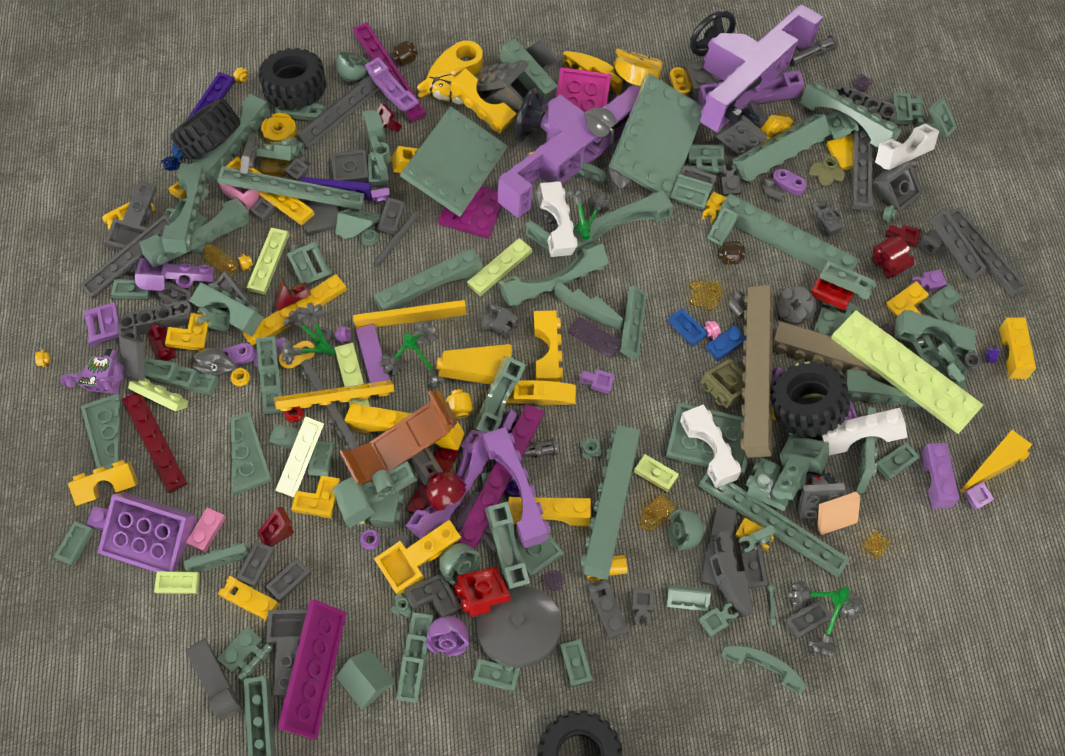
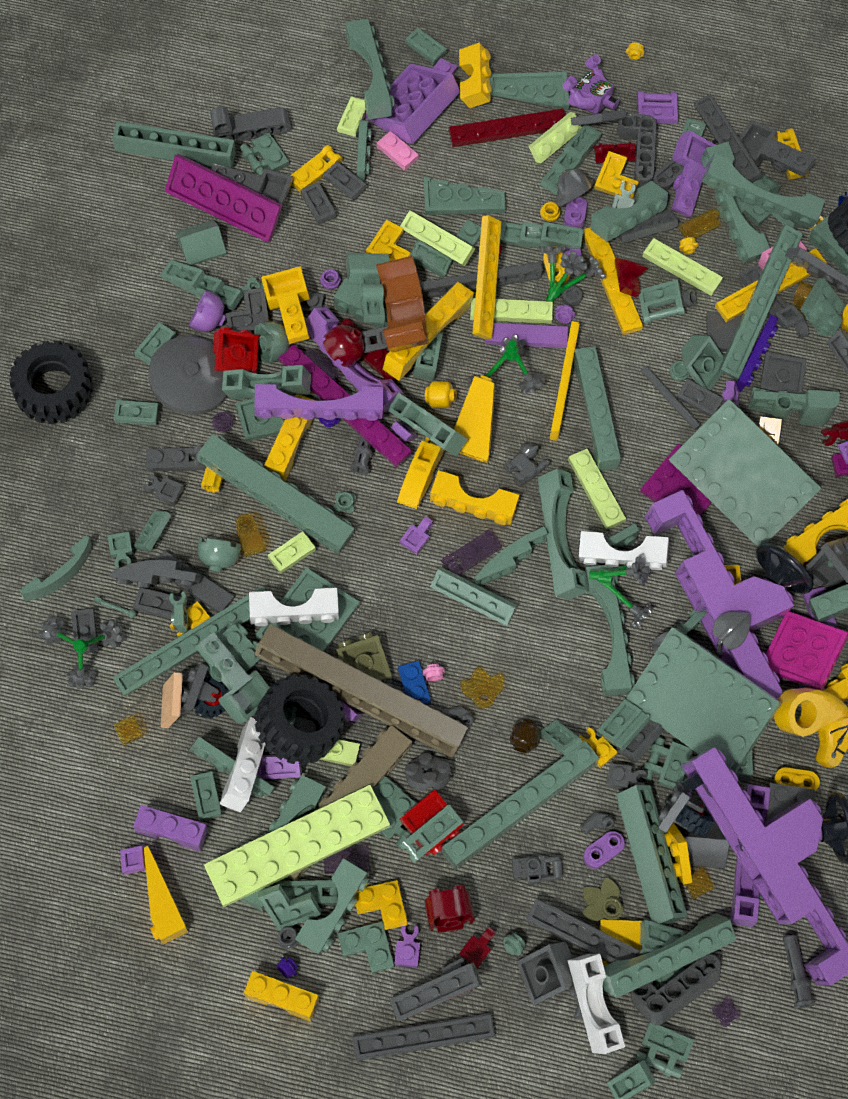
camera: 105 degrees right, 5 degrees up
(78, 606) = (361, 39): none -> sand green arch
(276, 528) = (372, 206): dark red slope -> none
(687, 327) = (447, 649): blue plate -> none

